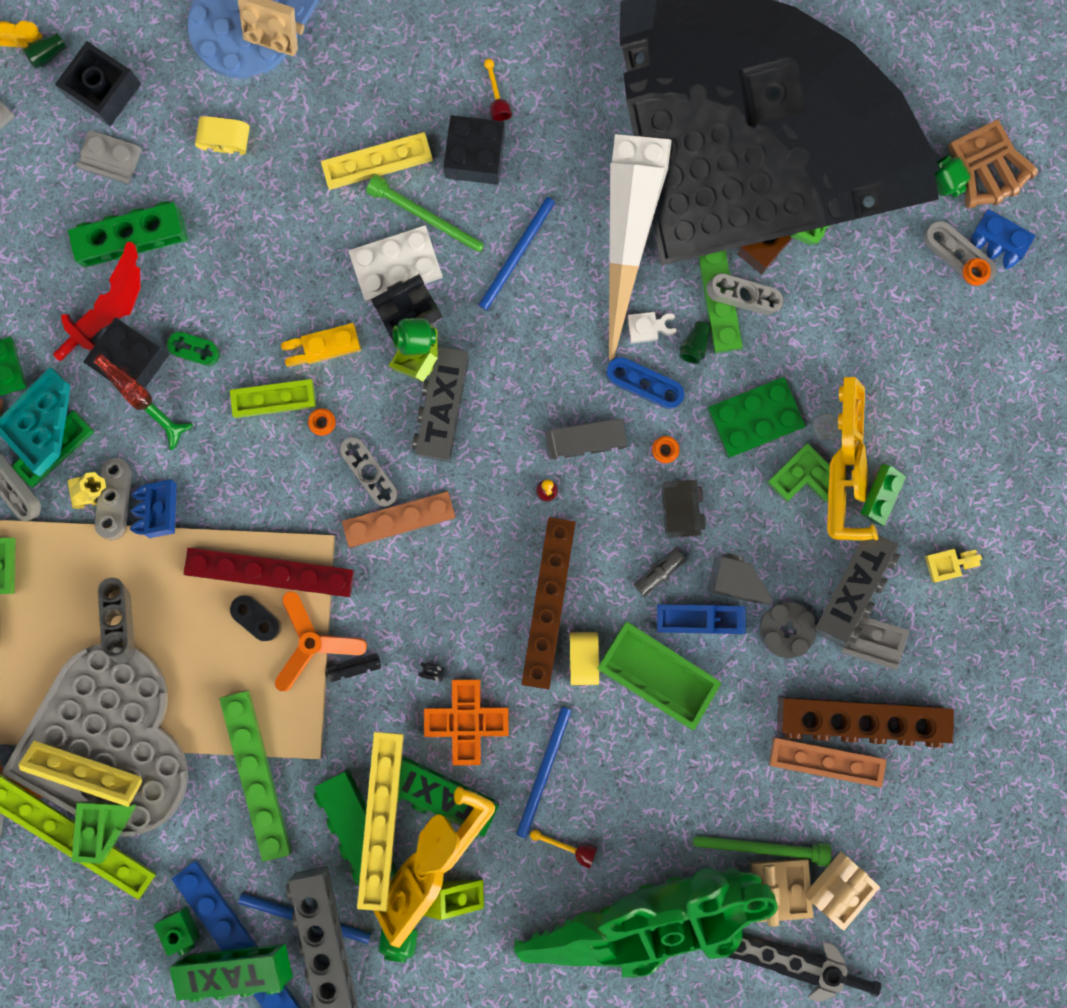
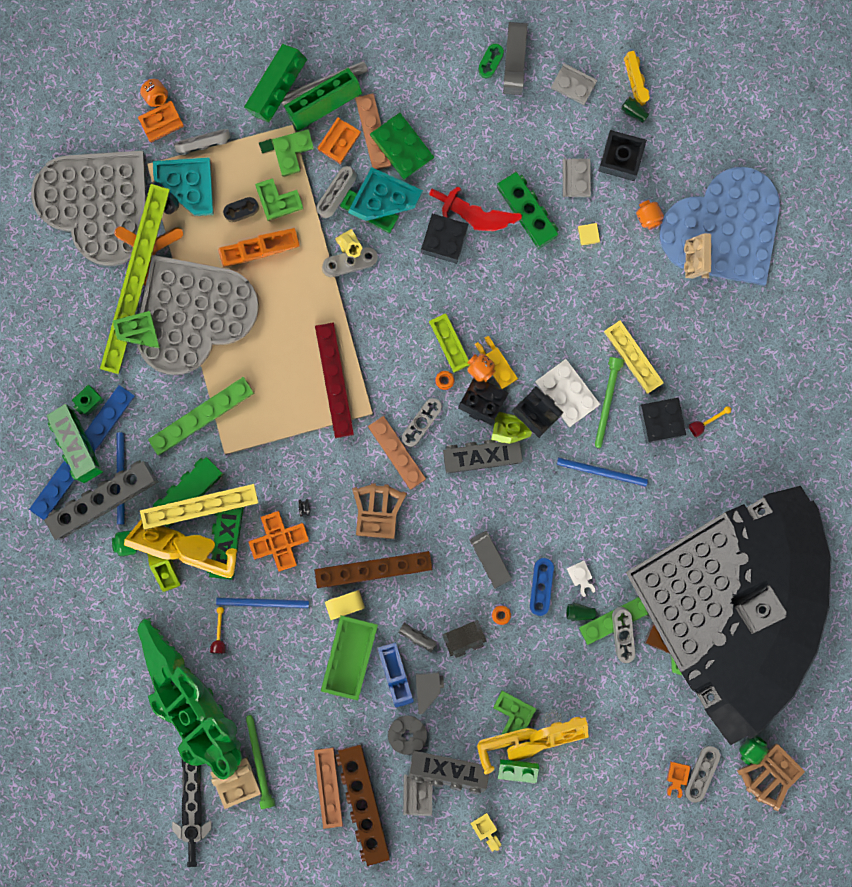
camera: 70 degrees right, 0 degrees up
(46, 621) = (258, 247): none -> orange slope
(80, 773) = (168, 306): light yellow plate -> none
(108, 610) = (279, 289): dark grey beam -> none
(141, 399) = (419, 259): clear red piece -> none
(157, 509) = (352, 293): blue plate -> none
(191, 166) = (588, 234): none -> light yellow tile
(191, 355) = (470, 278): green beam -> none
(192, 76) = (649, 214): none -> orange head
(222, 135) = (616, 248): light yellow beam -> none
(255, 617) = (302, 381): black plate -> none
(320, 365) = (481, 367): none -> orange head
(323, 643) = (299, 431): orange piece -> none
(353, 667) = (290, 455): black axle -> none
(367, 379) = (483, 401): none -> black plate
(414, 336) = (518, 424): green head -> none
(485, 580) = (377, 523): none -> medium nougat plate
(546, 488) = (449, 543): dark red hinge -> none
(635, 188) = (668, 537): white plate -> none
(756, 417) = (543, 669): green plate -> none
(842, 891) = (247, 822): tan plate -> none
(951, 286) = (678, 775): none -> orange plate
(983, 268) = (697, 787): orange plate -> none
(1002, 237) = (724, 800): blue plate -> none

